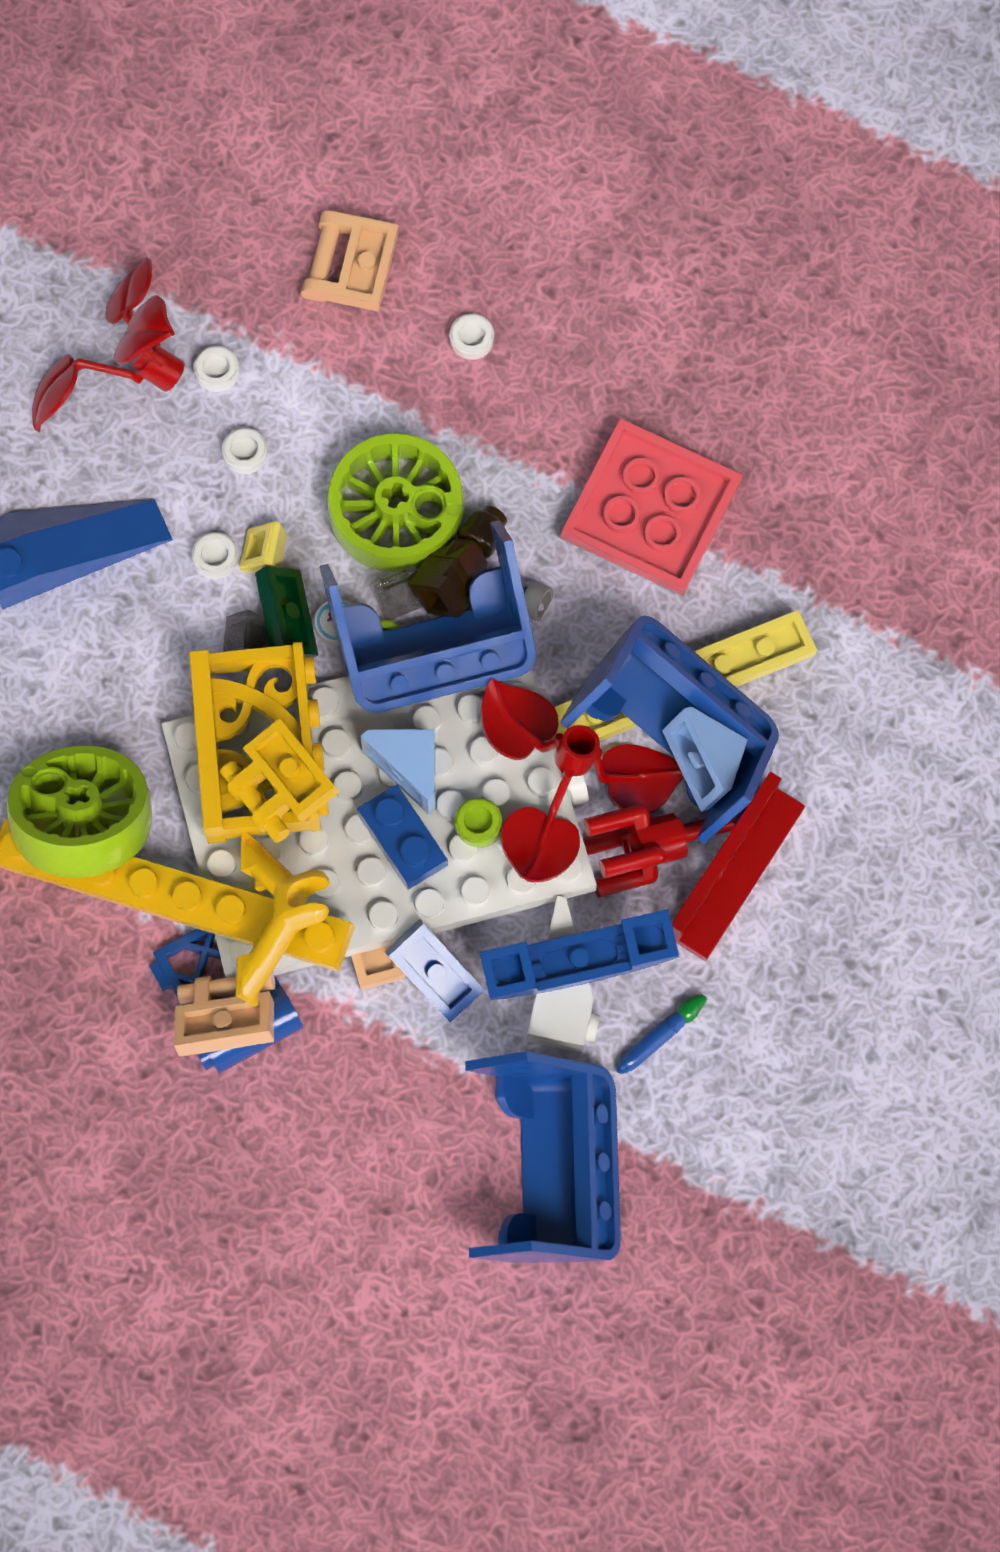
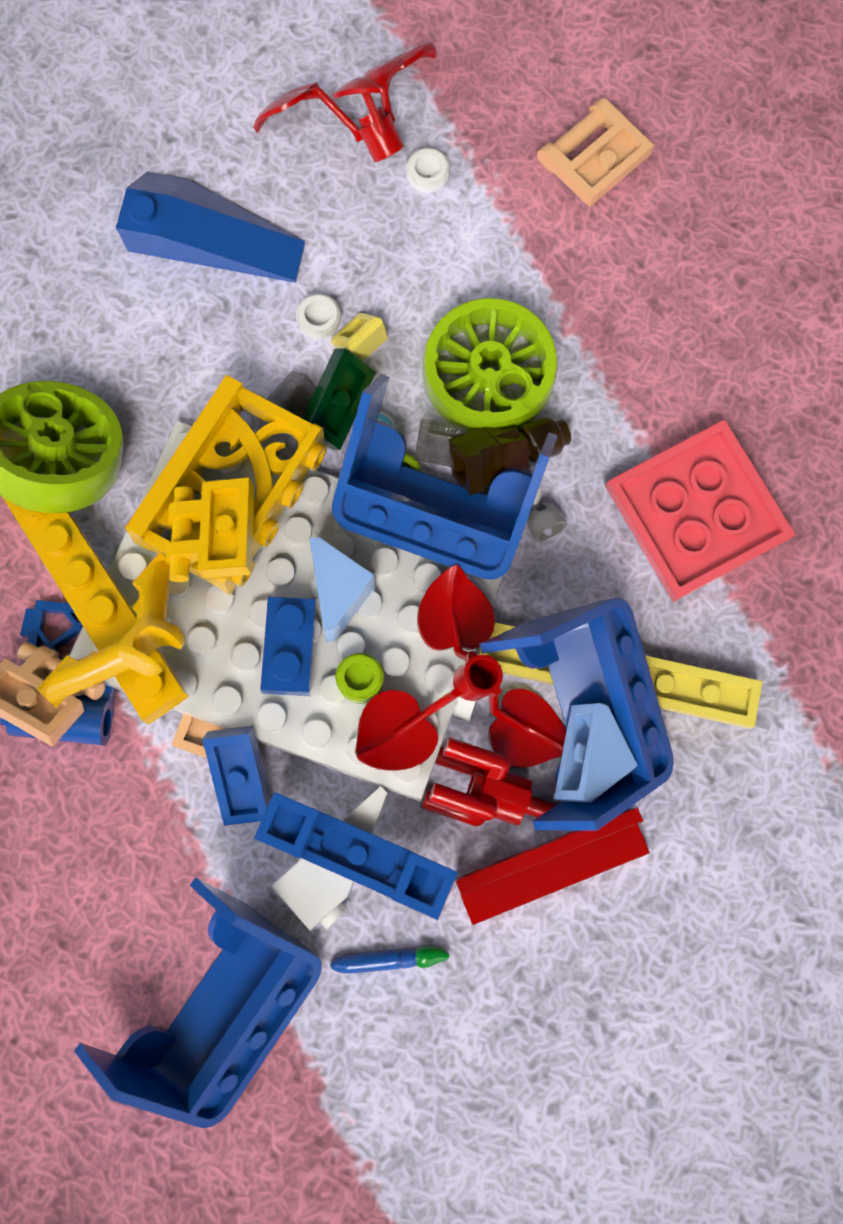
camera: 40 degrees right, 5 degrees up
(244, 450) = (402, 248): white tile -> none
(471, 336) = (650, 274): white tile -> none

